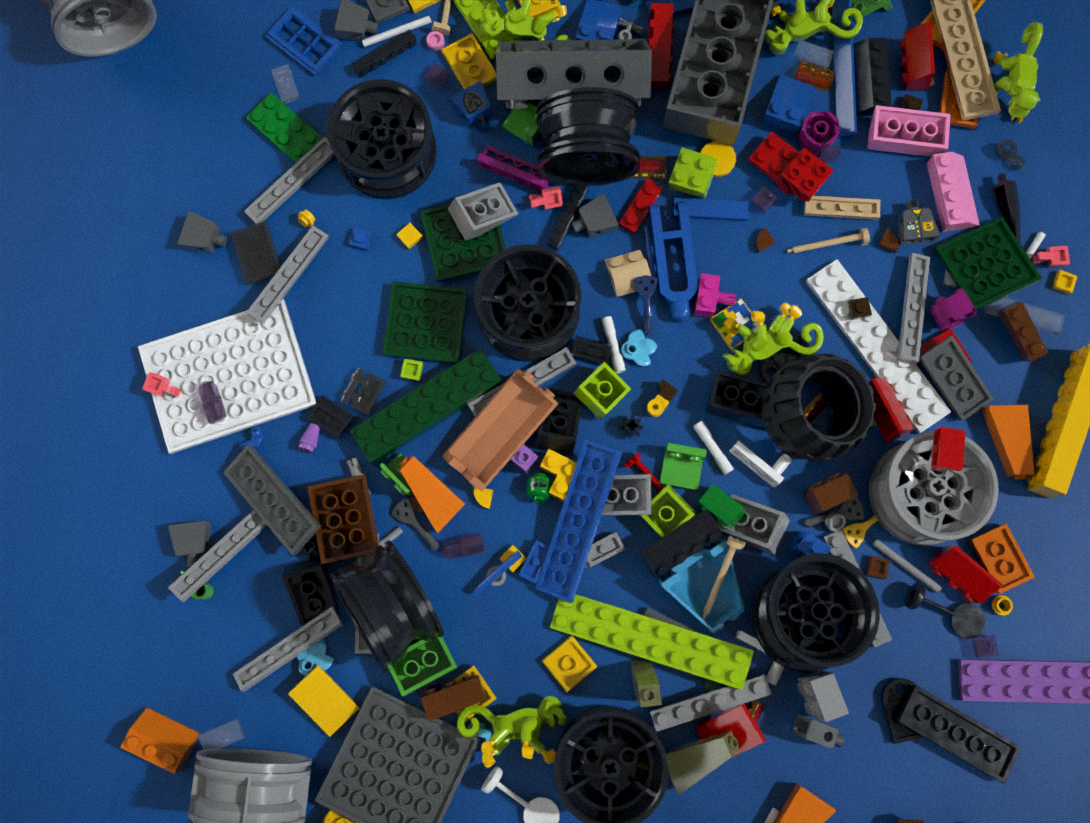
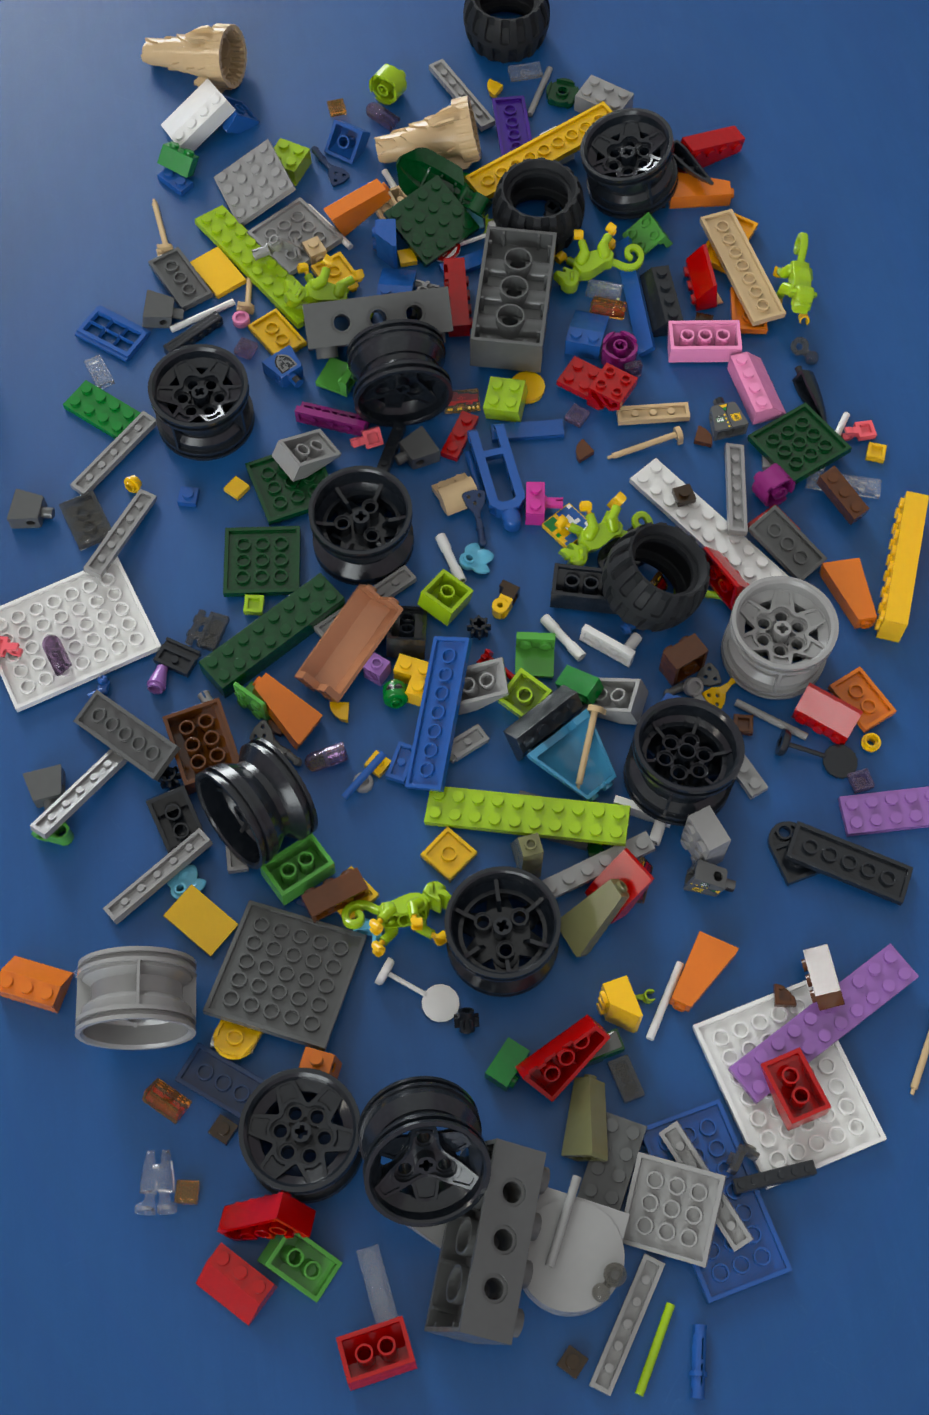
camera: 10 degrees left, 15 degrees down
(591, 350) = (429, 563): black plate -> none
(948, 449) = (782, 586): red panel -> none

